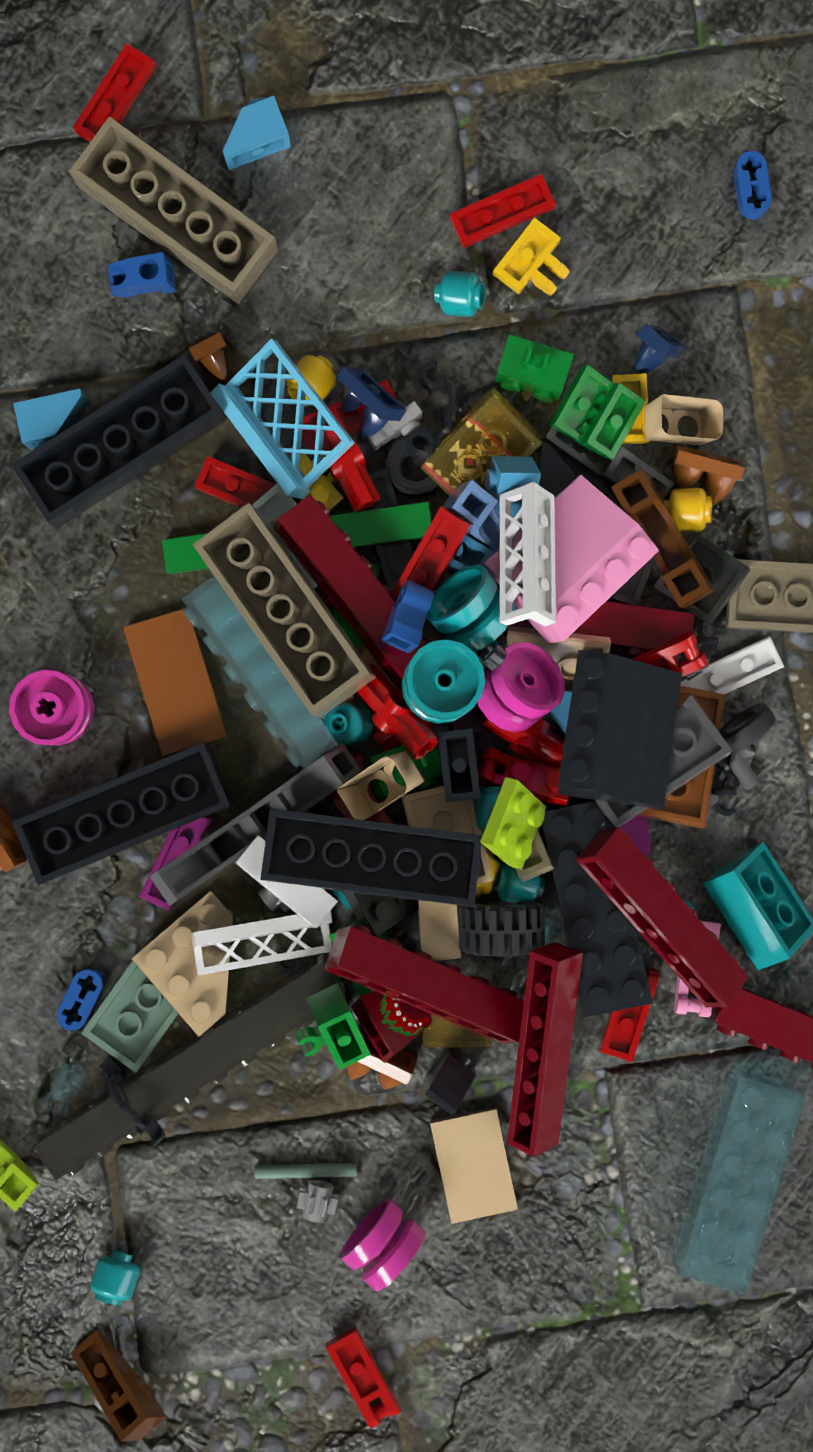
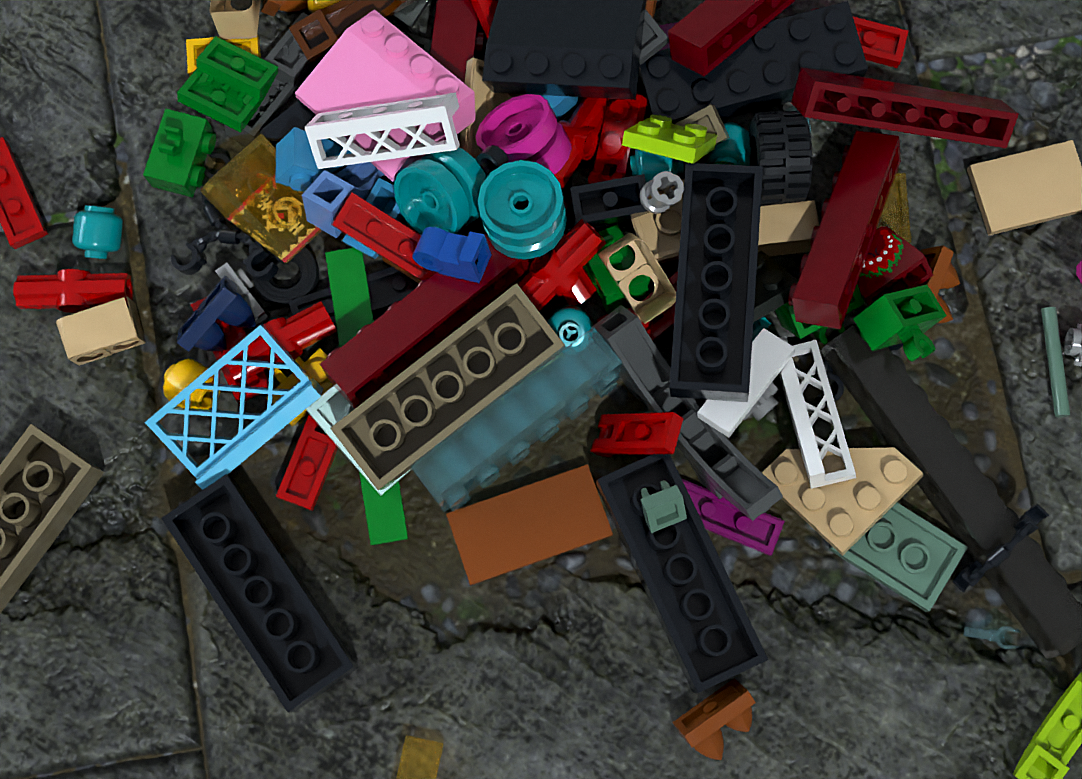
camera: 95 degrees left, 10 degrees down
(32, 703) = (588, 654): dark pink wheel -> none
(48, 416) = (233, 680): dark azure slope -> none
(74, 994) = (893, 607): blue beam -> none
(142, 275) = (70, 581): blue leg -> none
(170, 799) = (663, 507): none -> sand green tile
(212, 357) = (164, 490): reddish brown tile -> none
(244, 781) = (637, 434): none -> red plate
(364, 298) = (101, 331): none -> tan piece
(405, 273) = (71, 290): none -> red piece
(450, 1079) = (944, 208): black slope -> none
(453, 821) = (660, 182): none -> light grey bush
(527, 257) = (60, 166): yellow hinge -> none
(656, 348) = (161, 28): dark blue tile -> none

